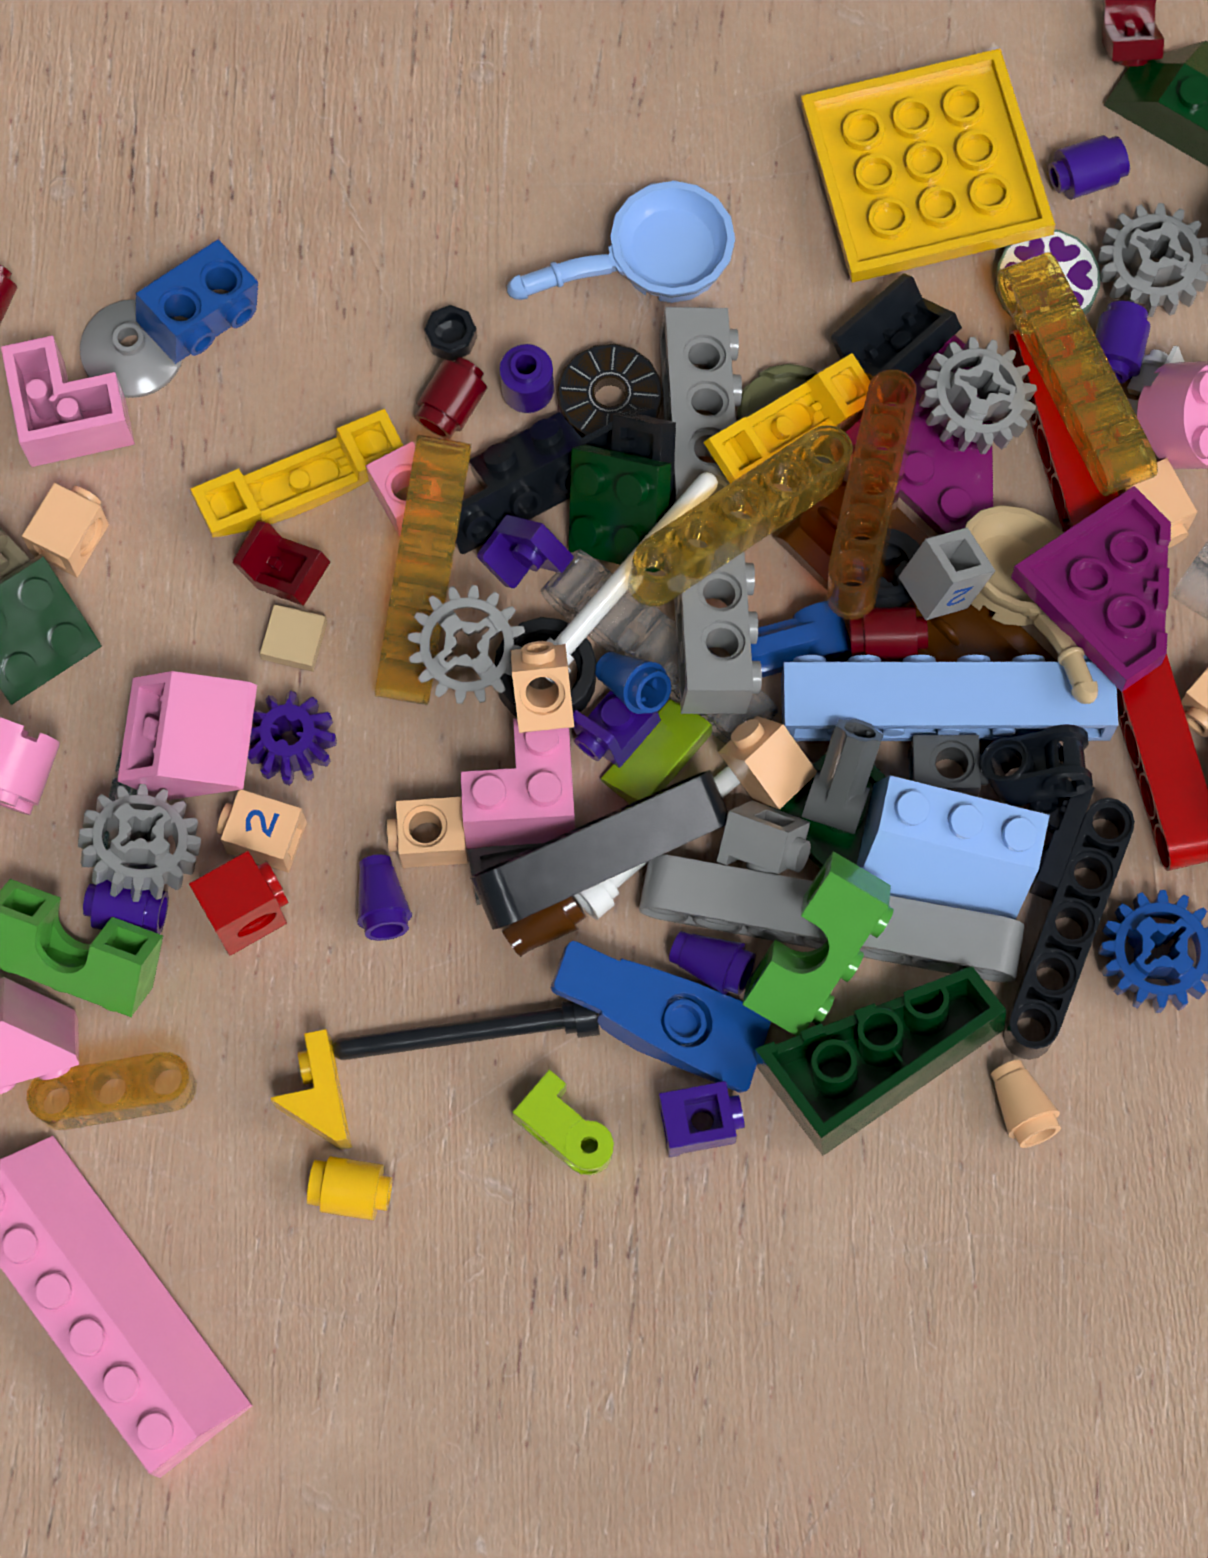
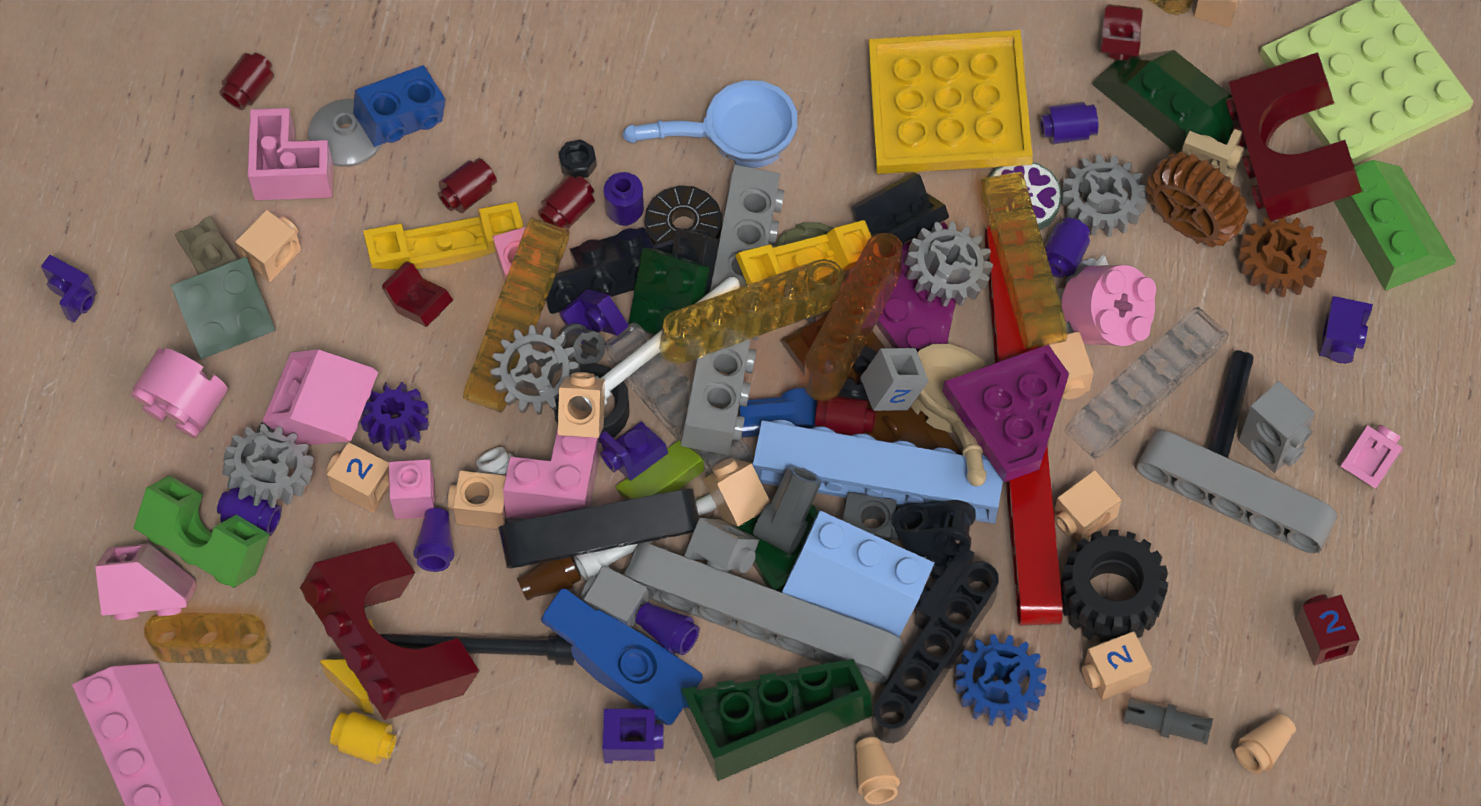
camera: 10 degrees right, 10 degrees down
(241, 901) = (331, 520): red brick -> none
(293, 638) = (414, 349): tan tile -> none
(312, 397) = (466, 185): none -> dark red brick
(335, 834) = (411, 488): none -> bright pink brick
(370, 1104) = (392, 676): none -> dark red arch
(437, 778) = (494, 461): none -> white plate
(524, 592) = (592, 347): none -> dark grey bush
(577, 1142) = (536, 735): lime leg -> none
(635, 681) = (652, 418): blue cone -> none
(636, 933) = (615, 595): none -> light grey brick
(796, 985) = (767, 597): bright green arch -> none

